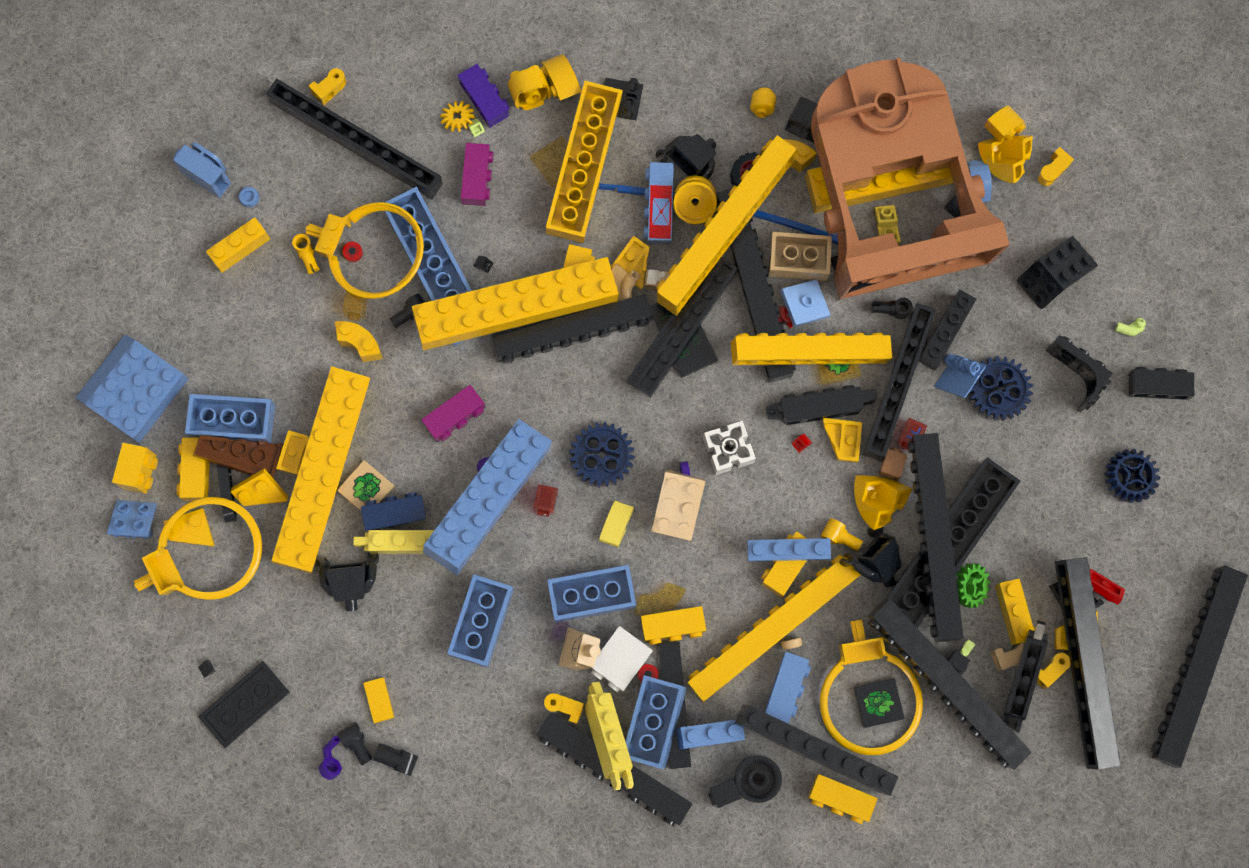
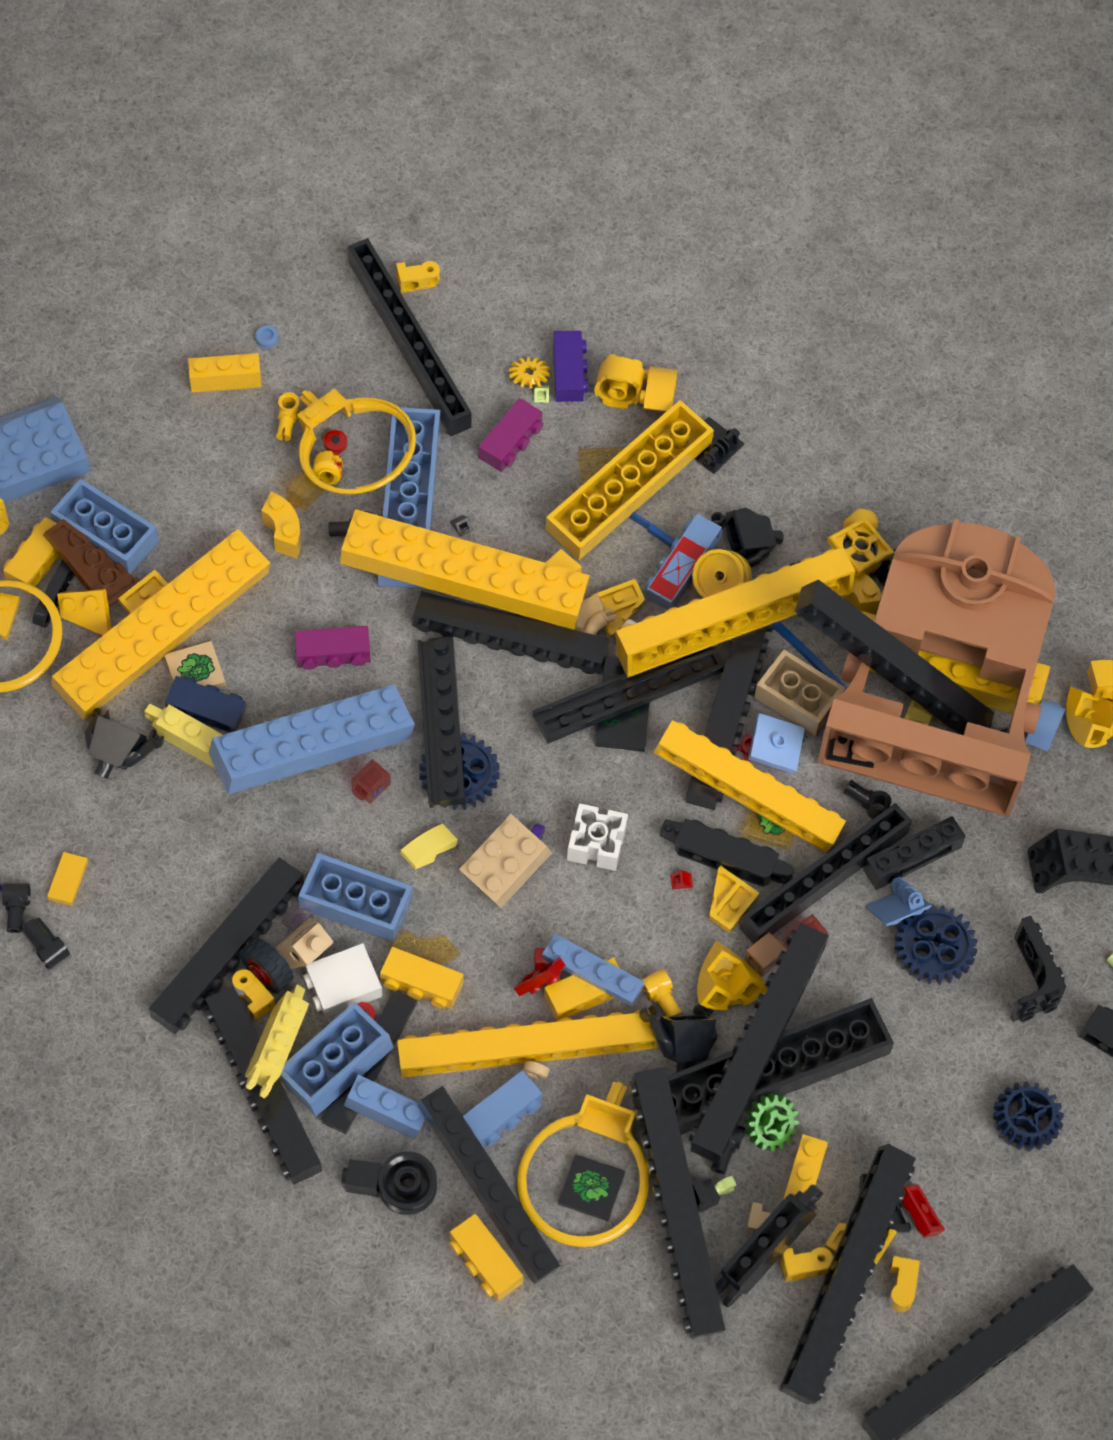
camera: 30 degrees right, 15 degrees down
(202, 168) = (238, 283): medium blue brick -> none
(362, 276) = (328, 467): none -> yellow head
(480, 621) = (223, 858): medium blue brick -> none
(524, 683) = (221, 951): none -> black brick
(563, 683) = (266, 965): none -> black wheel
(568, 426) = (441, 722): none -> black plate
(743, 561) = (538, 960): none -> red tile
(755, 576) = (534, 980): none -> red plate
(777, 122) = (860, 548): none -> yellow piece
(863, 203) = (890, 658): none -> black brick
(1123, 643) = (905, 1284): none -> yellow leg

